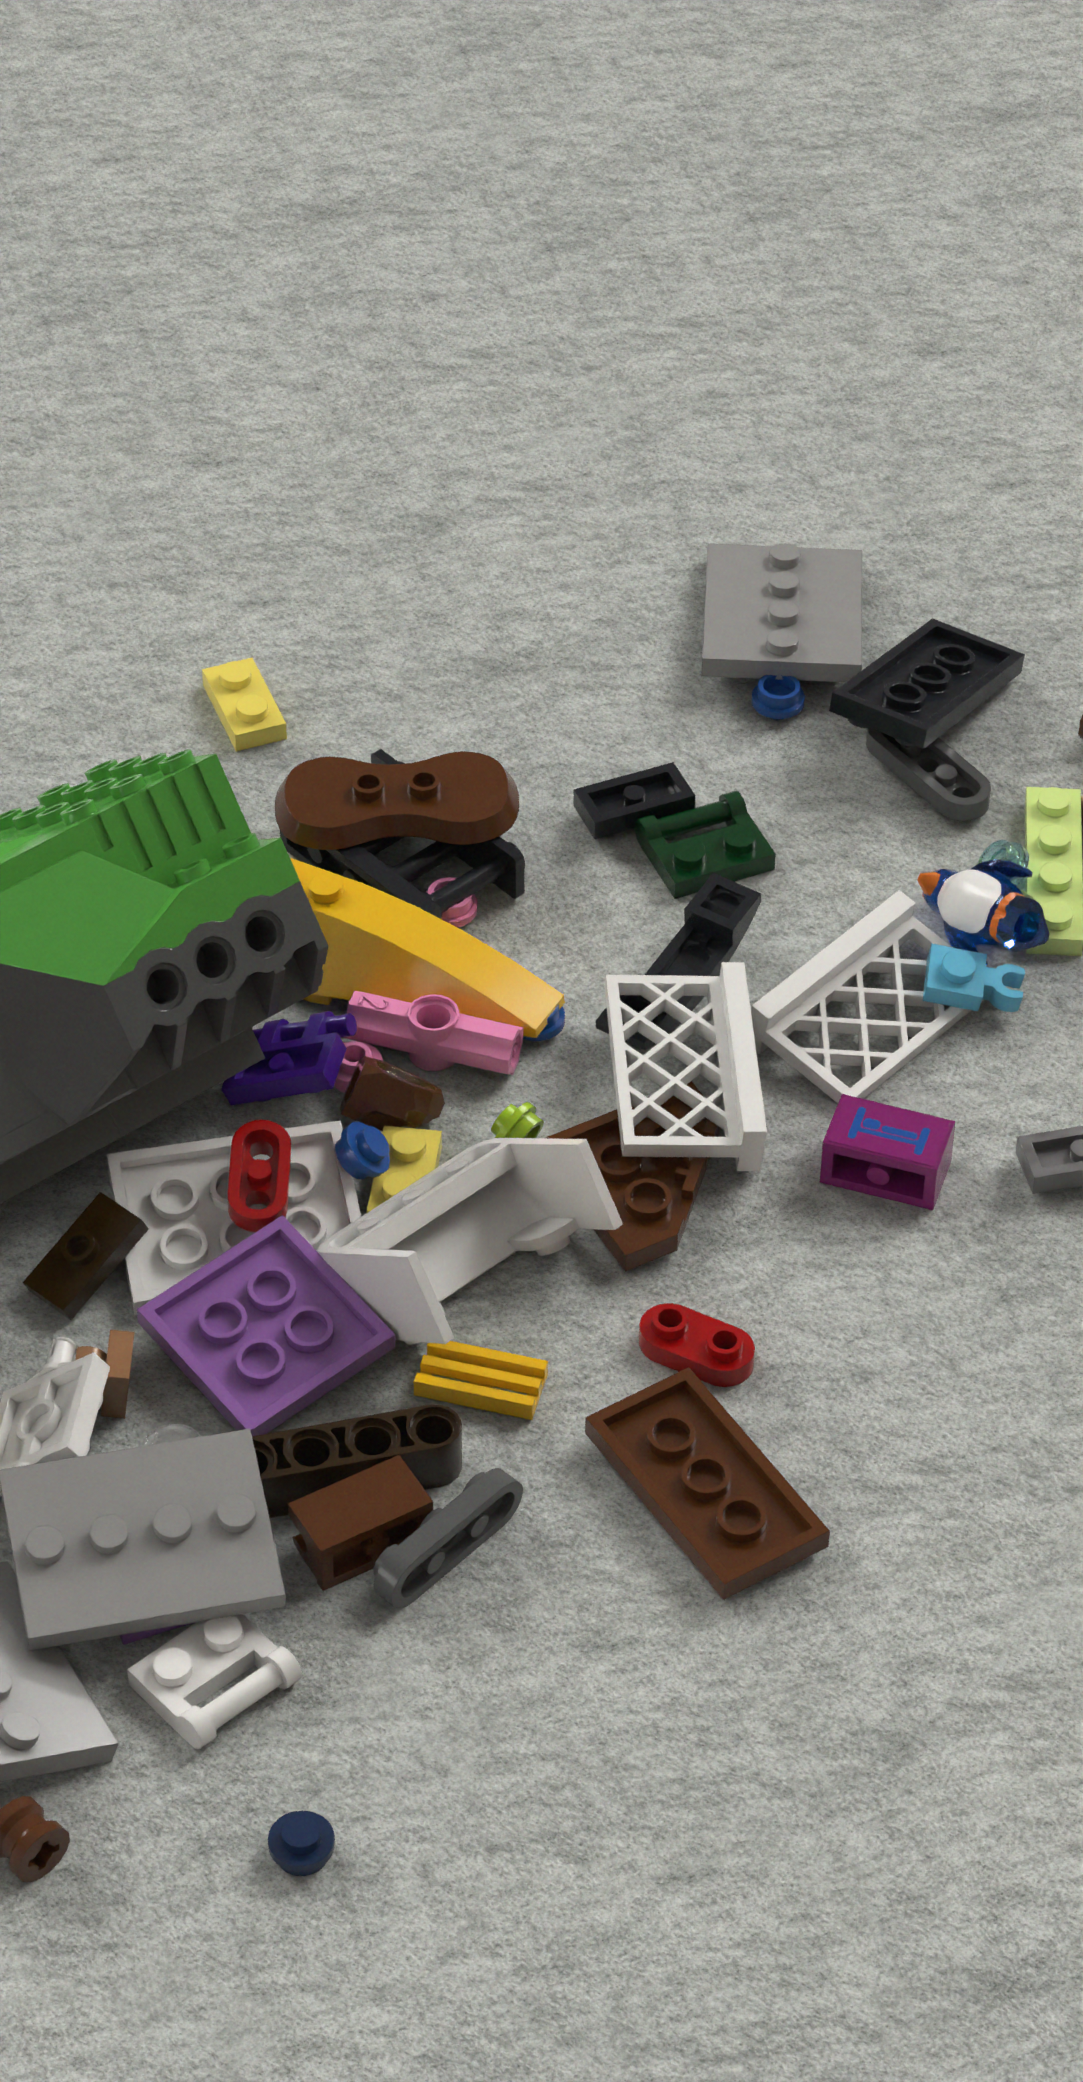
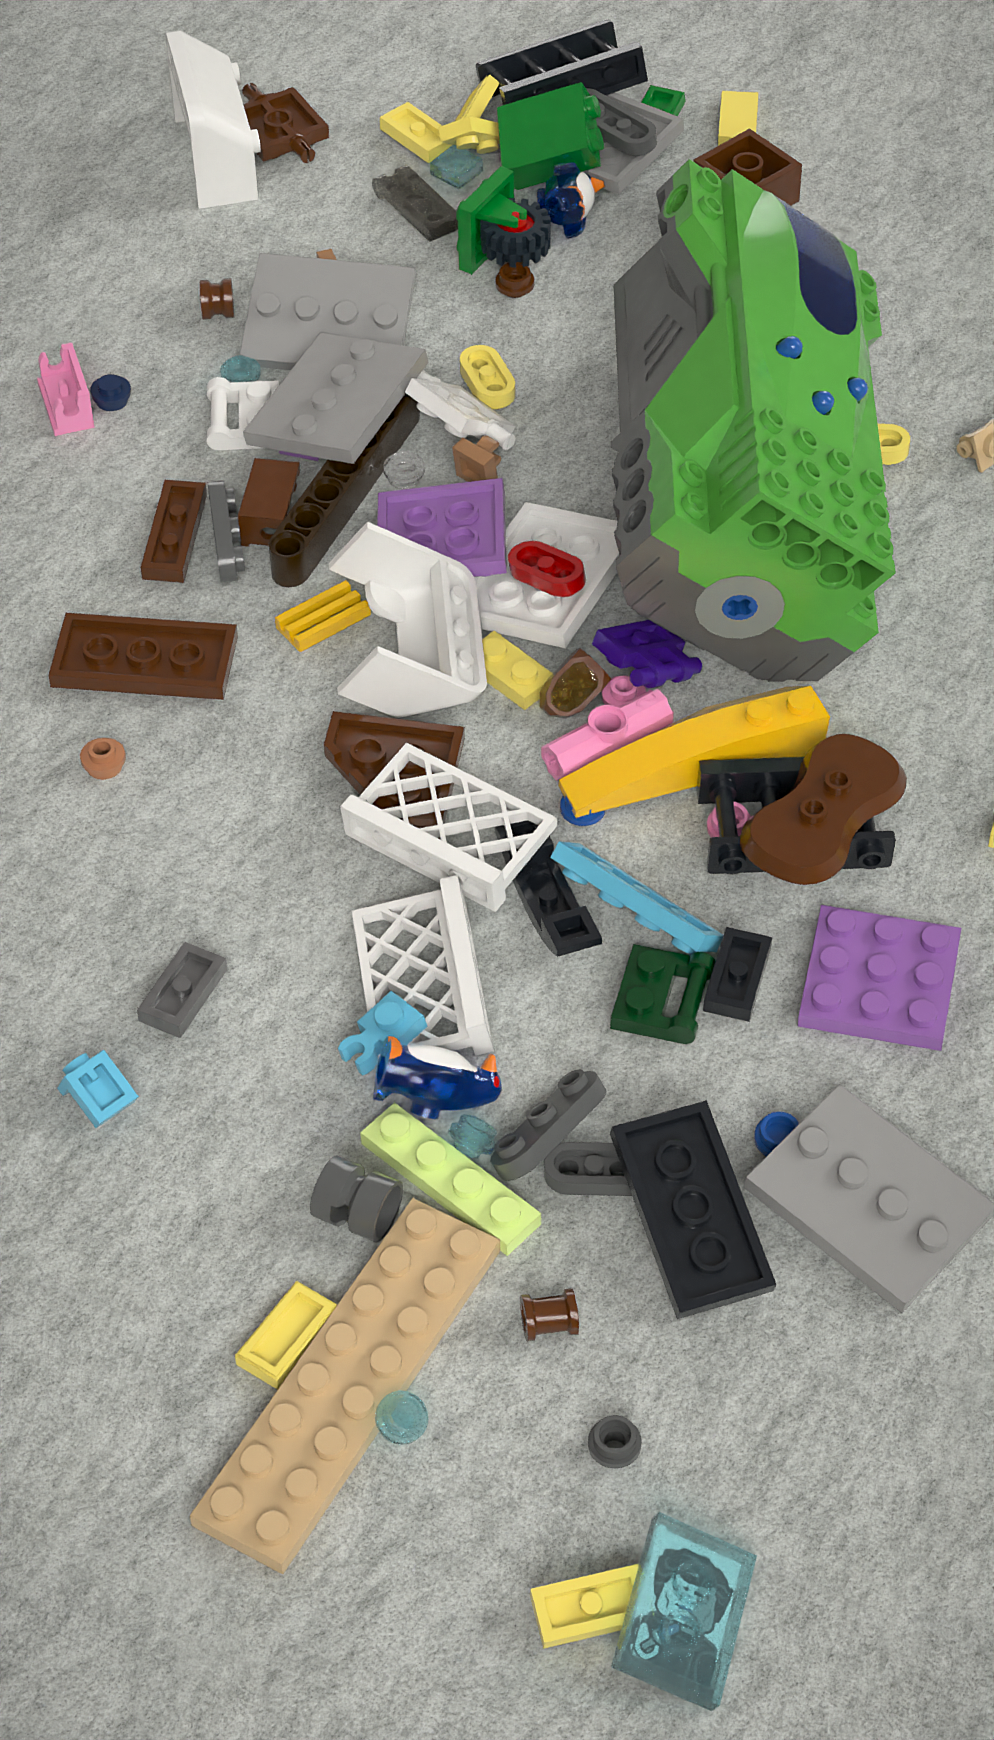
camera: 130 degrees right, 5 degrees up
(85, 1255) = (575, 493): dark brown plate -> none
(142, 1742) = (240, 369): none -> clear light blue plate
(353, 1878) = (65, 393): none -> bright pink hinge
(363, 1151) = (526, 630): blue plate -> none
(487, 1591) = (174, 531): none -> reddish brown plate
(517, 1122) = (489, 729): lime plate -> none
(535, 719) = (880, 977): none -> medium lavender plate
(619, 901) = (622, 889): none -> medium azure plate
(690, 1339) = (246, 720): red plate -> none
(876, 1423) = (103, 758): none -> nougat plate
(887, 1151) = (285, 889): magenta brick -> none
(911, 828) = (547, 1124): none -> dark grey plate

